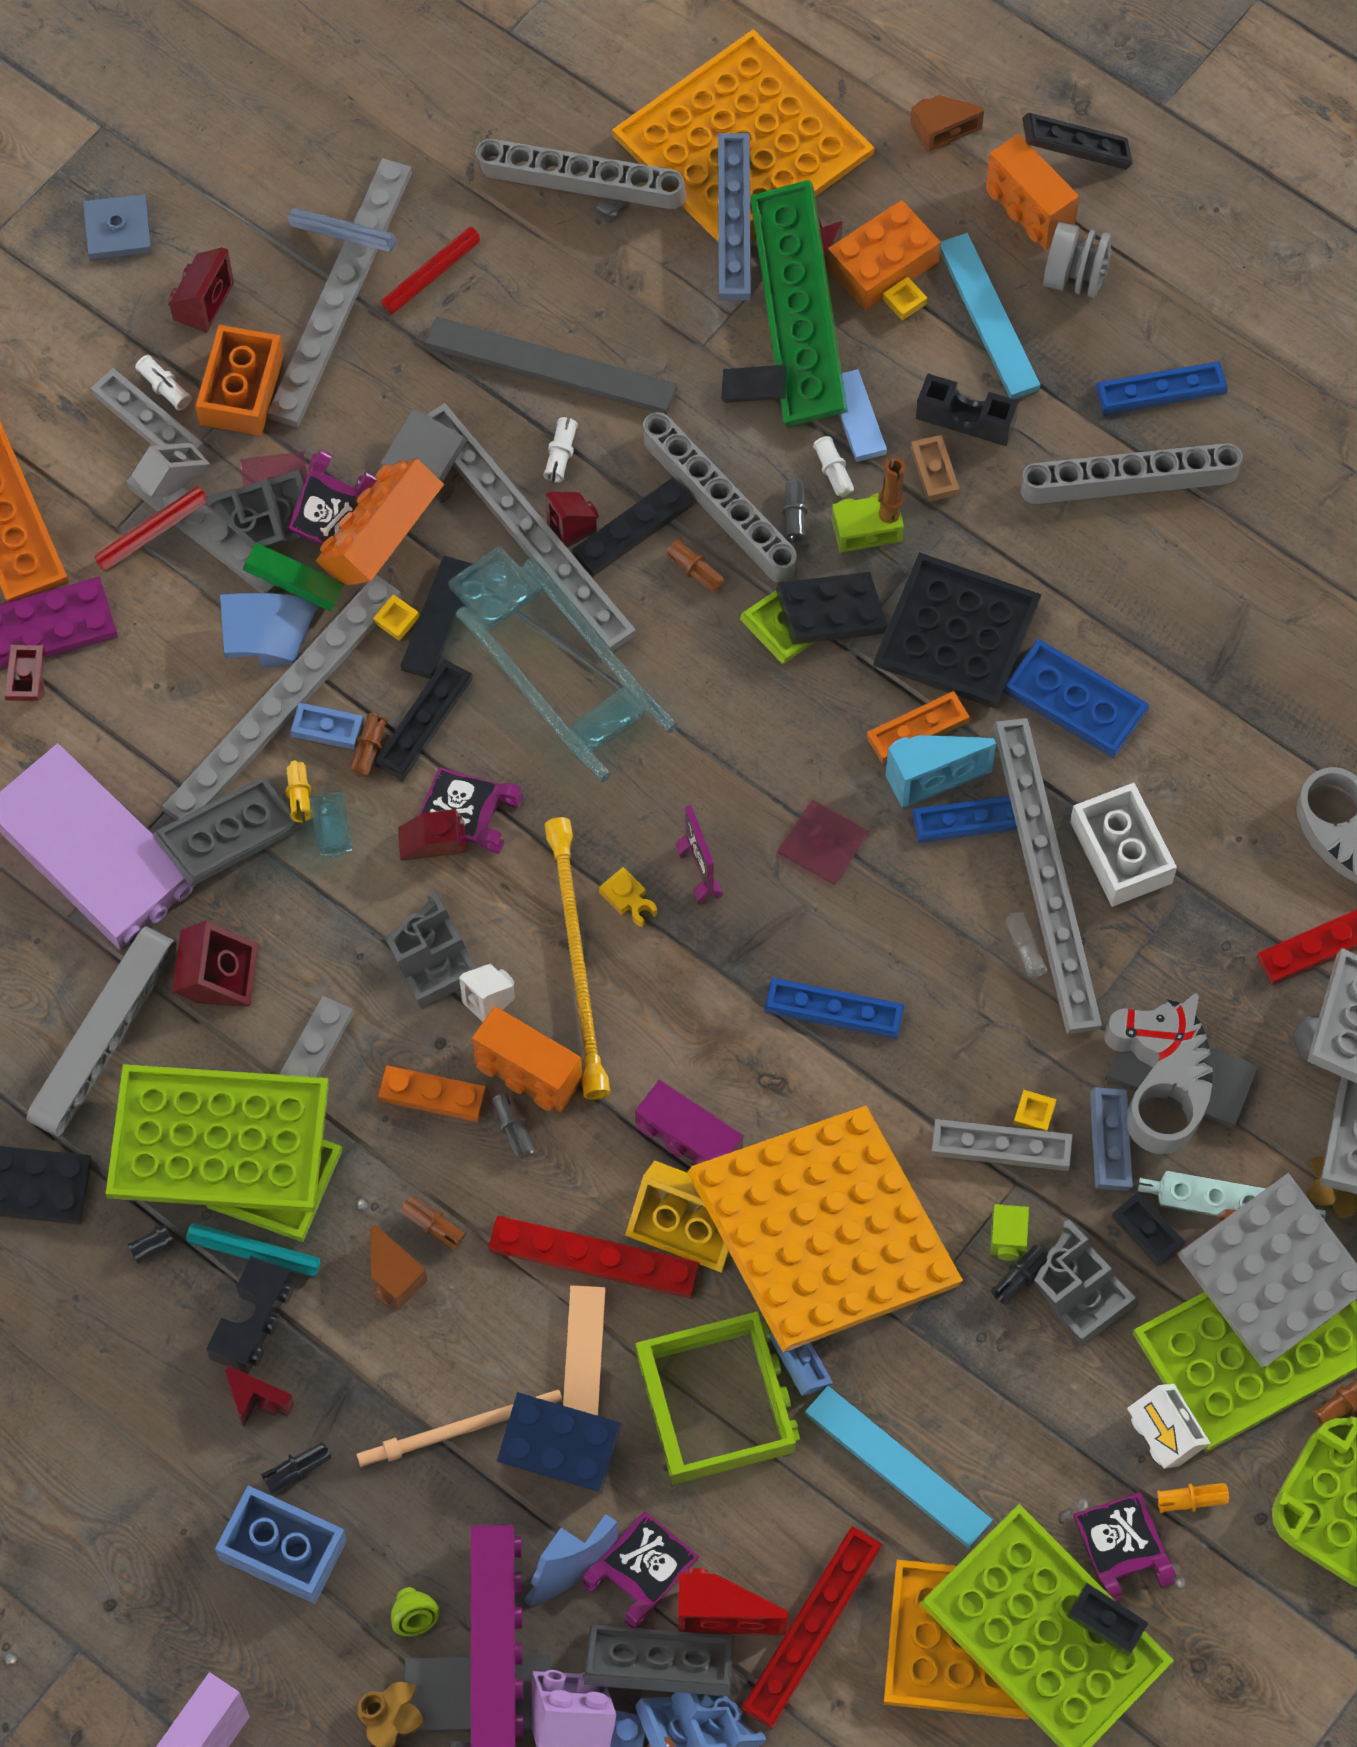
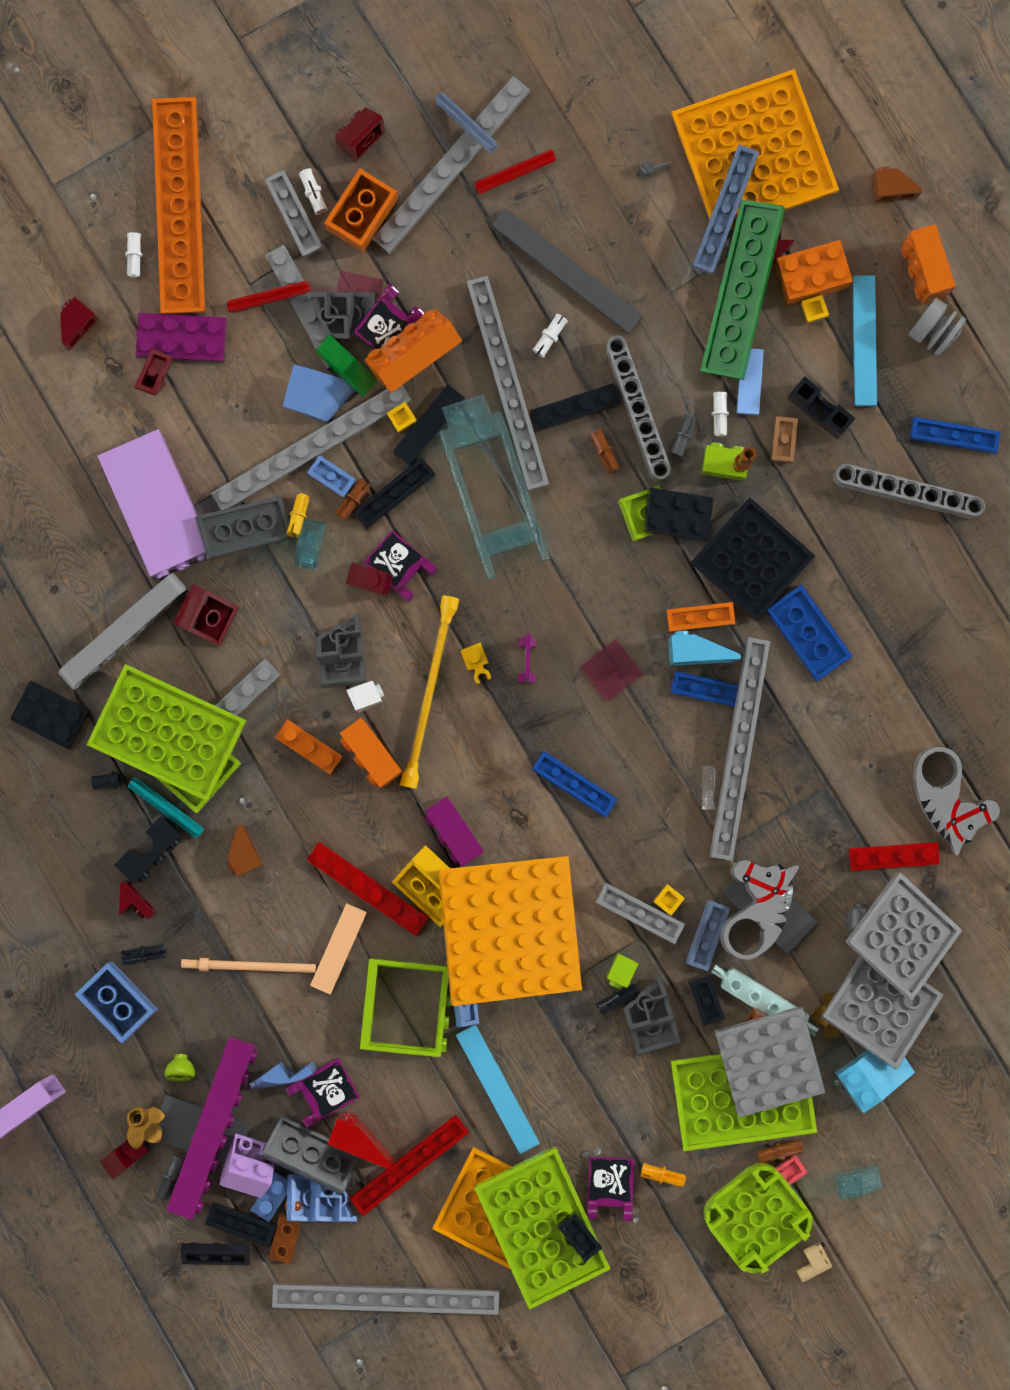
camera: 20 degrees right, 20 degrees up
(117, 227) = (323, 62): sand blue plate -> none
(168, 468) = (293, 260): light grey slope -> none
(428, 441) = (462, 304): dark grey tile -> none
(432, 1222) = (279, 833): dark orange axle -> none
(513, 1125) = (350, 788): dark grey axle -> none
(559, 1442) = (301, 1002): dark blue brick -> none
(570, 516) = (538, 389): dark red slope -> none
(591, 183) = (631, 130): light grey beam -> none
(754, 383) = (691, 336): black tile -> none
(1077, 141) = (973, 238): black tile -> none
(1123, 844) = (795, 748): white brick -> none
(1168, 1426) = (666, 1130): white brick -> none

